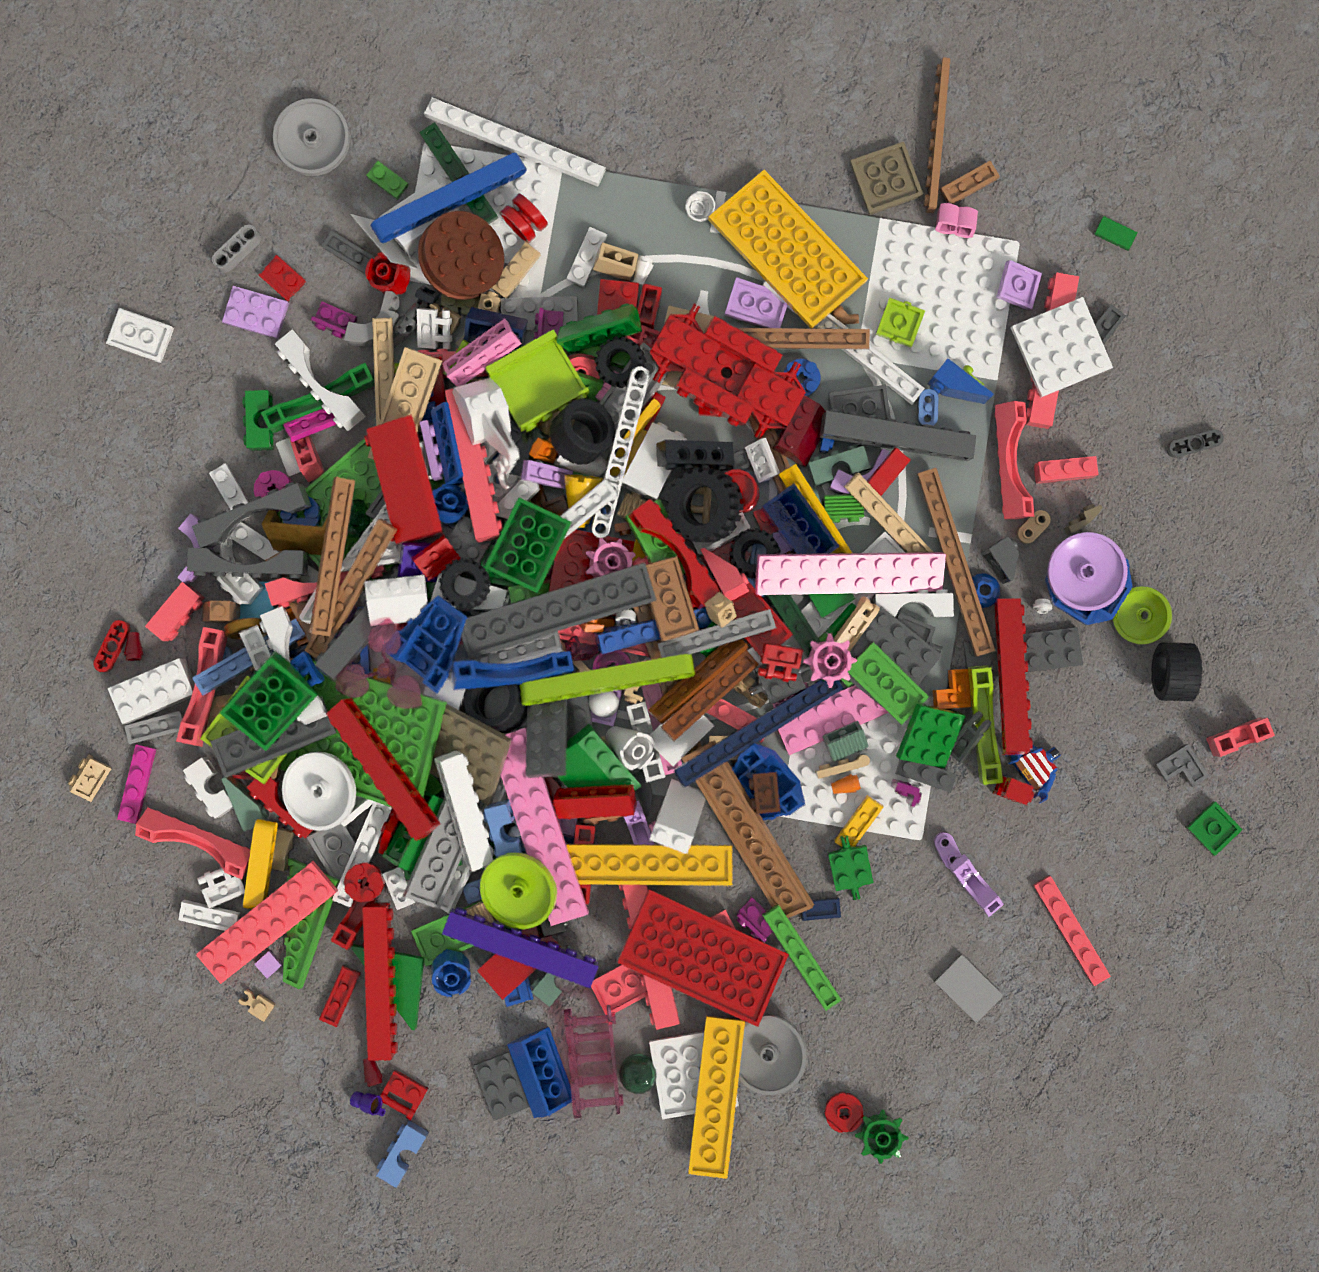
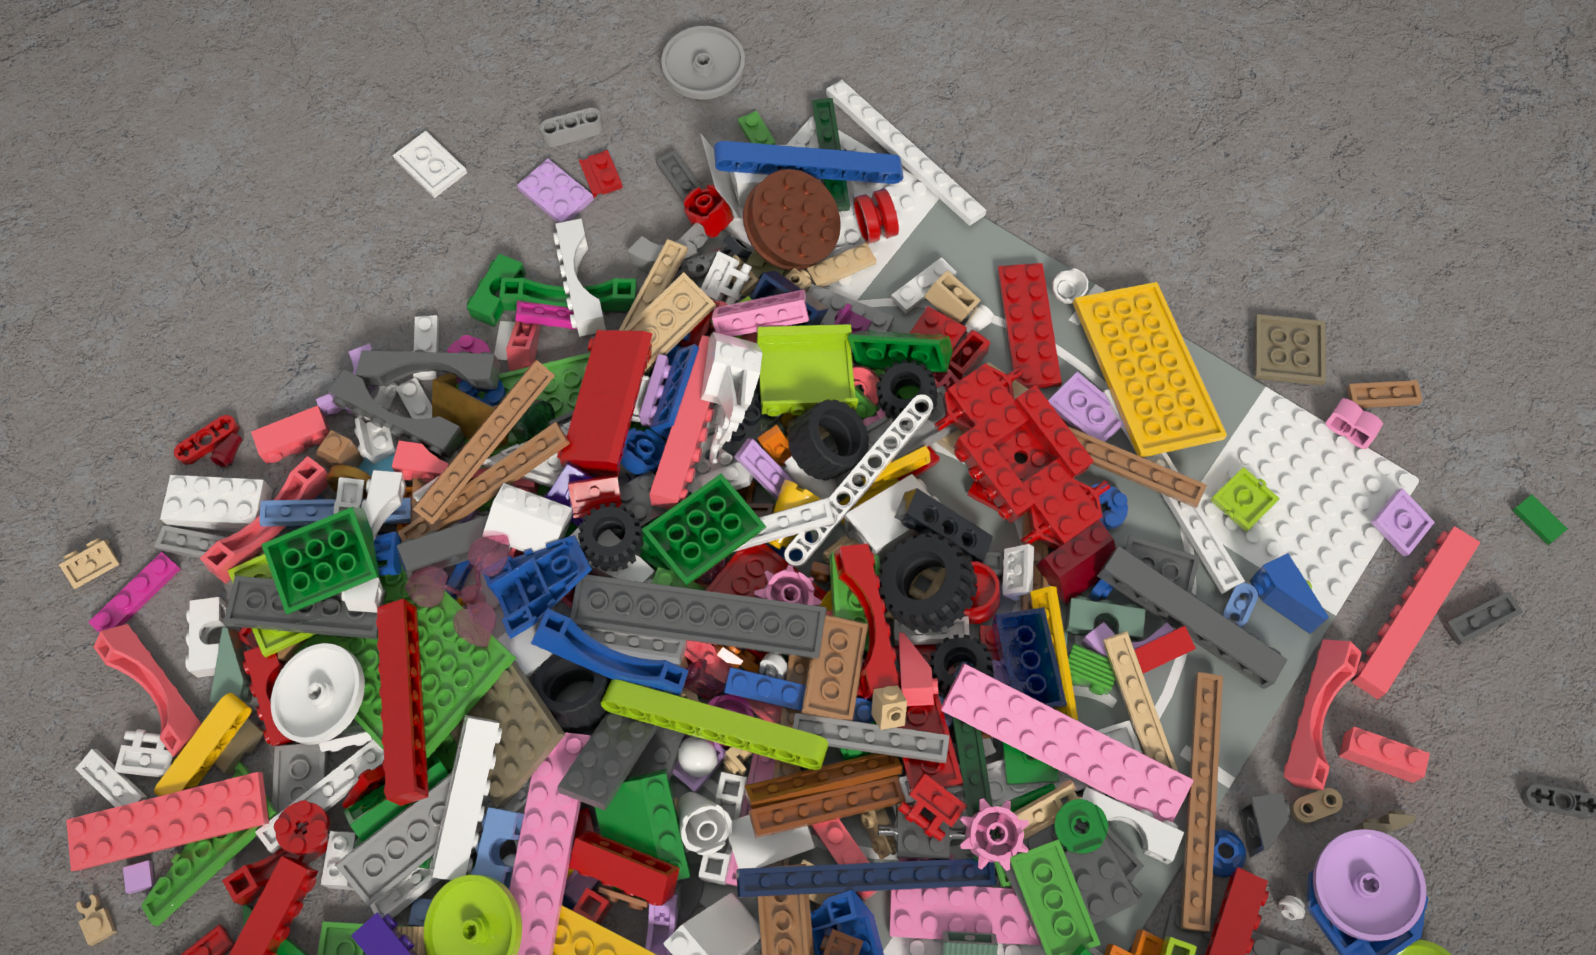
camera: 25 degrees right, 20 degrees down
(332, 319) = (626, 230): magenta bracket -> none
(682, 252) = (1029, 324): none -> red plate
(841, 315) = (1180, 463): medium nougat arm -> none
(895, 626) = (1086, 812): none -> green plate
(937, 128) = (1361, 338): medium nougat plate -> none
(1061, 347) = (1431, 609): white plate -> none

